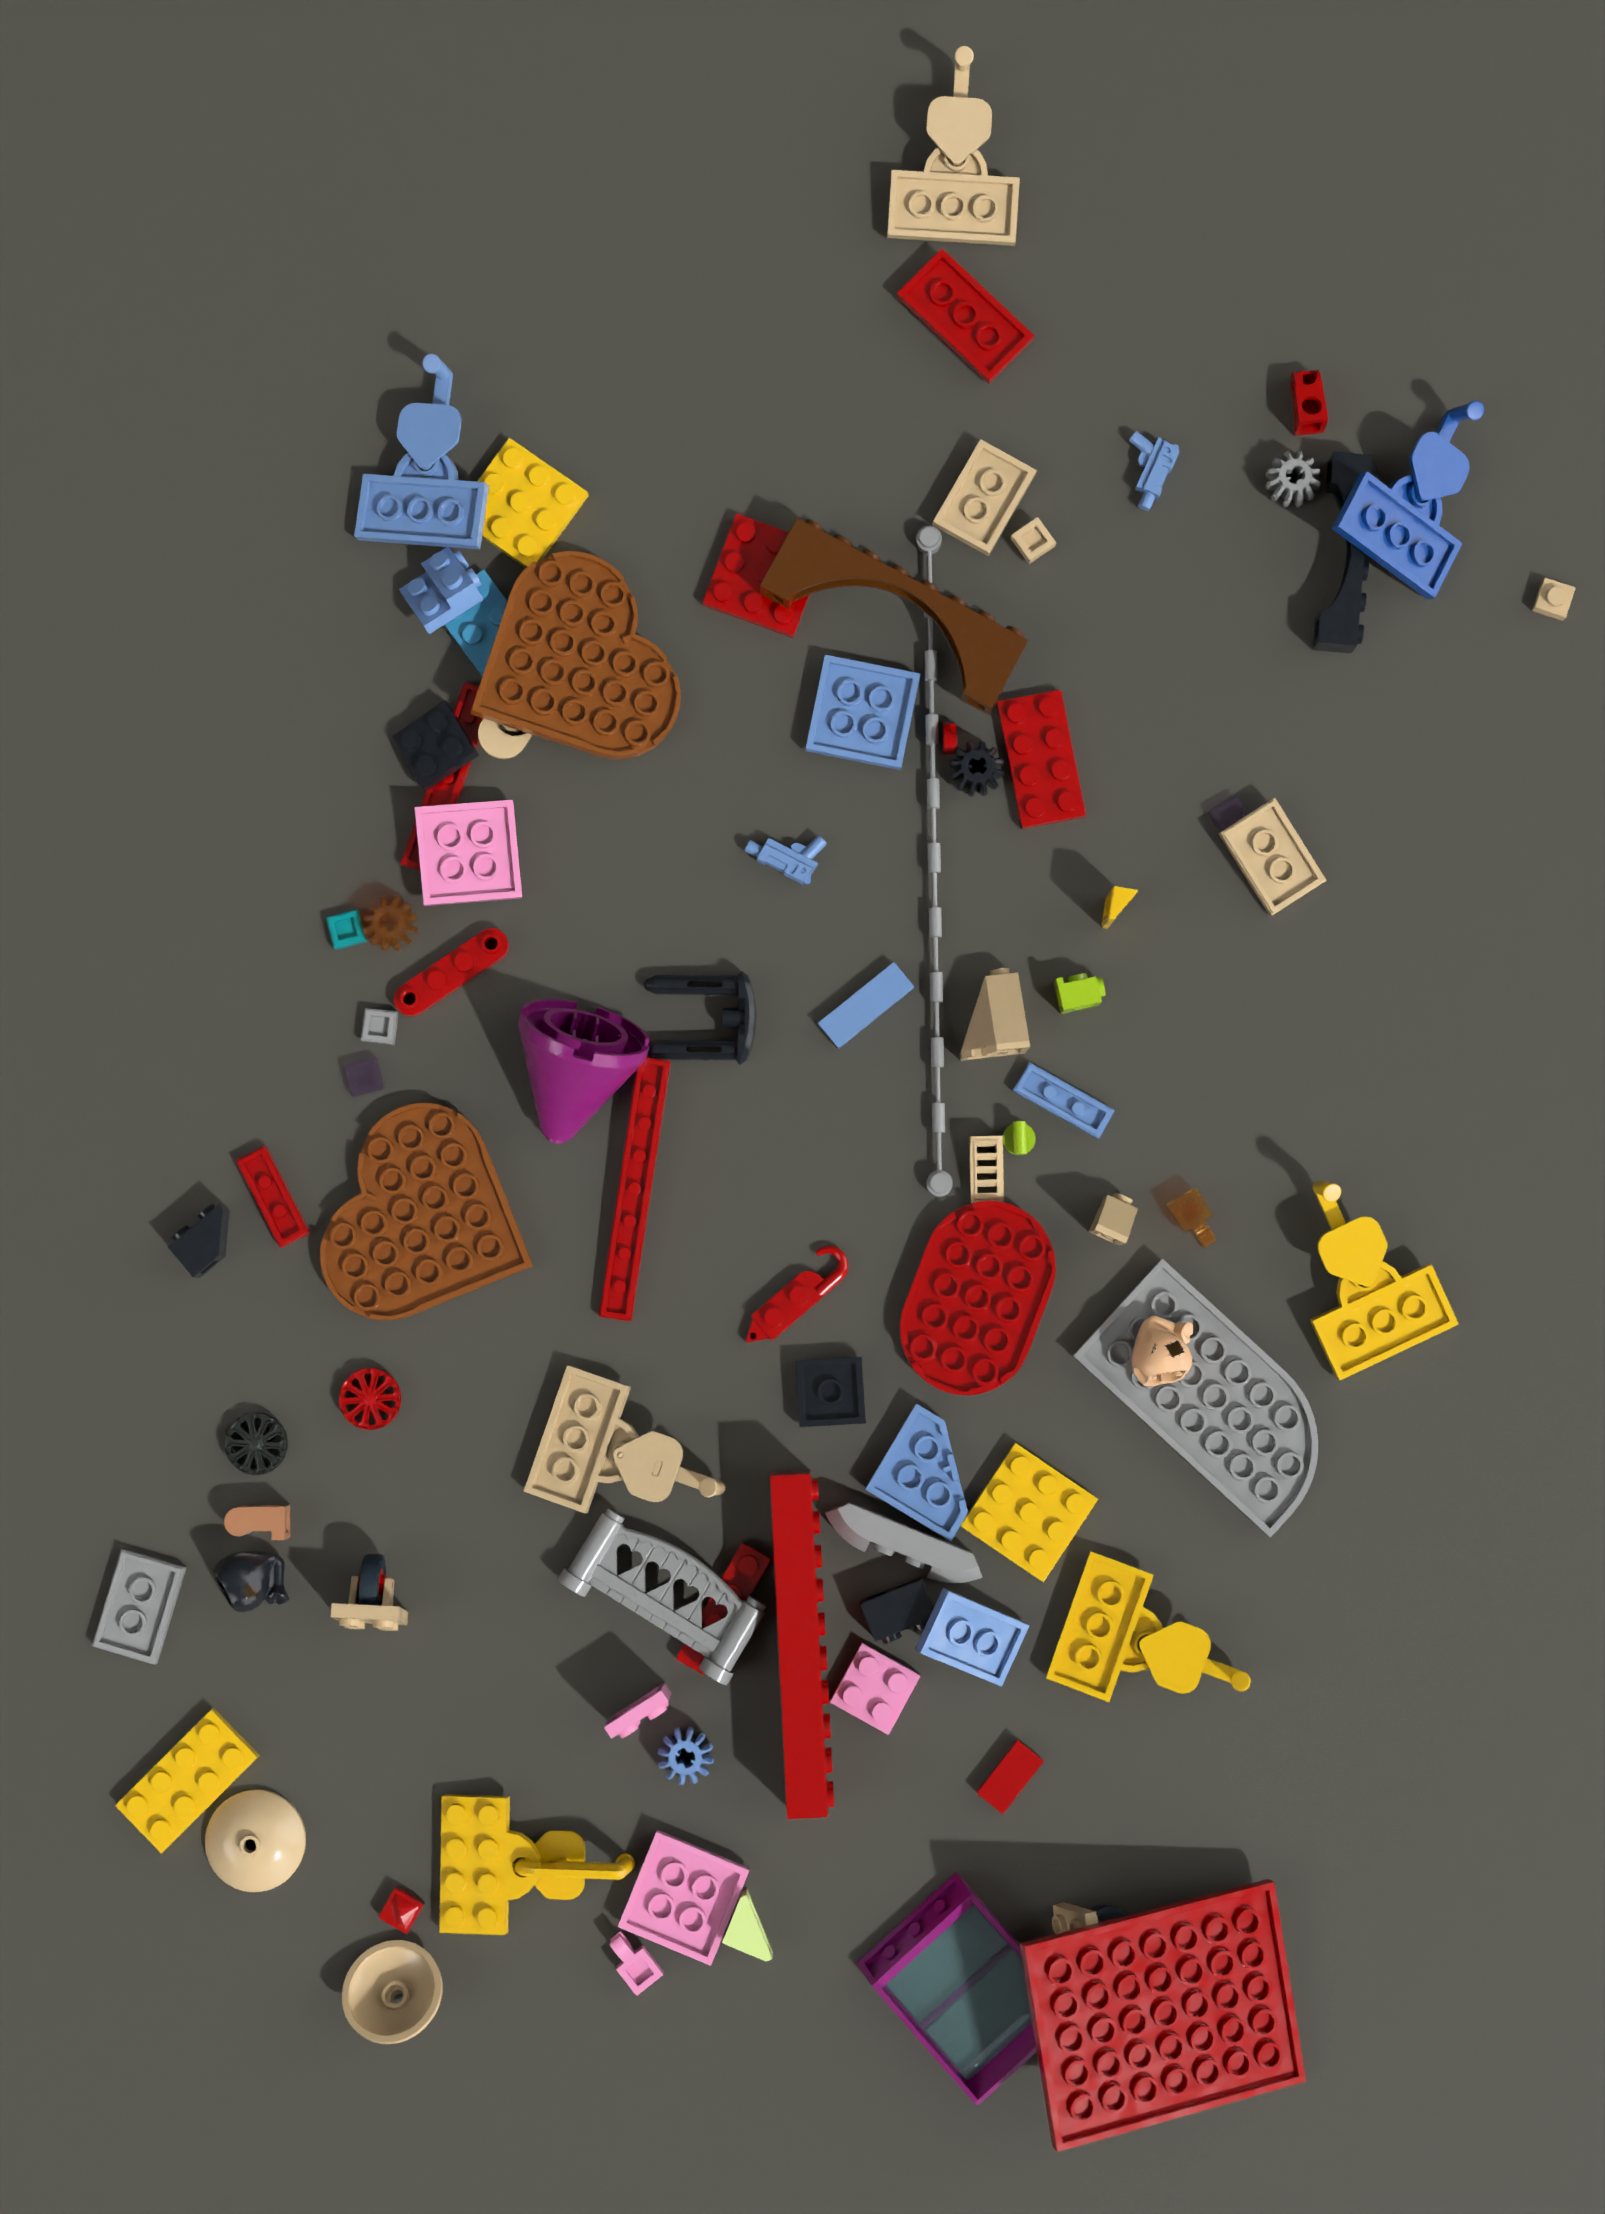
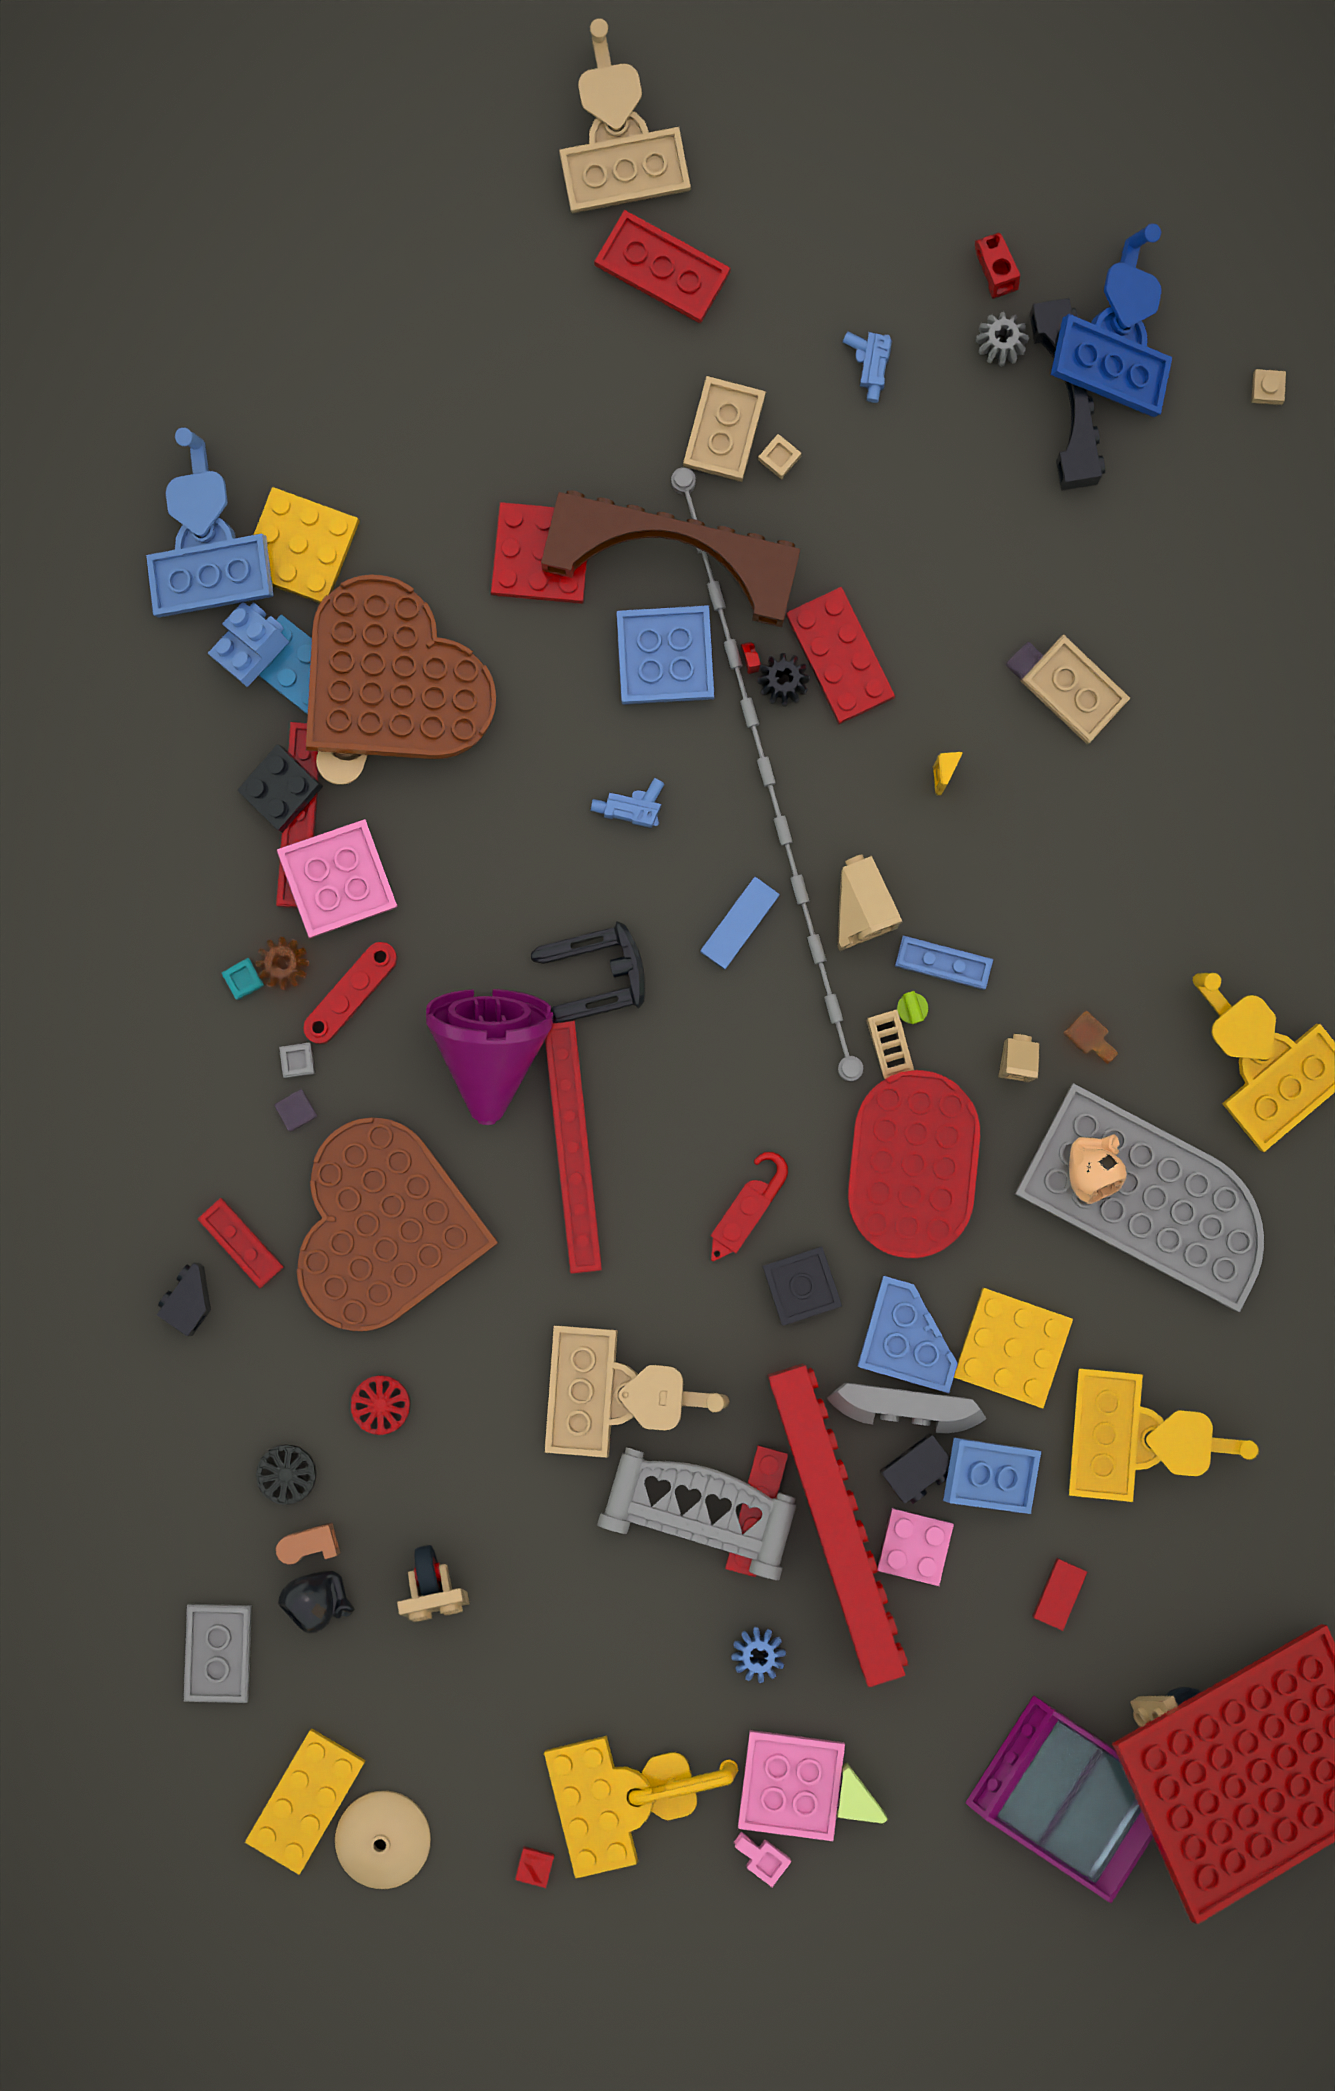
camera: 15 degrees left, 0 degrees up
(378, 1977) = (532, 1932): tan dish -> none
(629, 1718) = (696, 1636): bright pink plate -> none
(1079, 992) = (932, 860): lime brick -> none

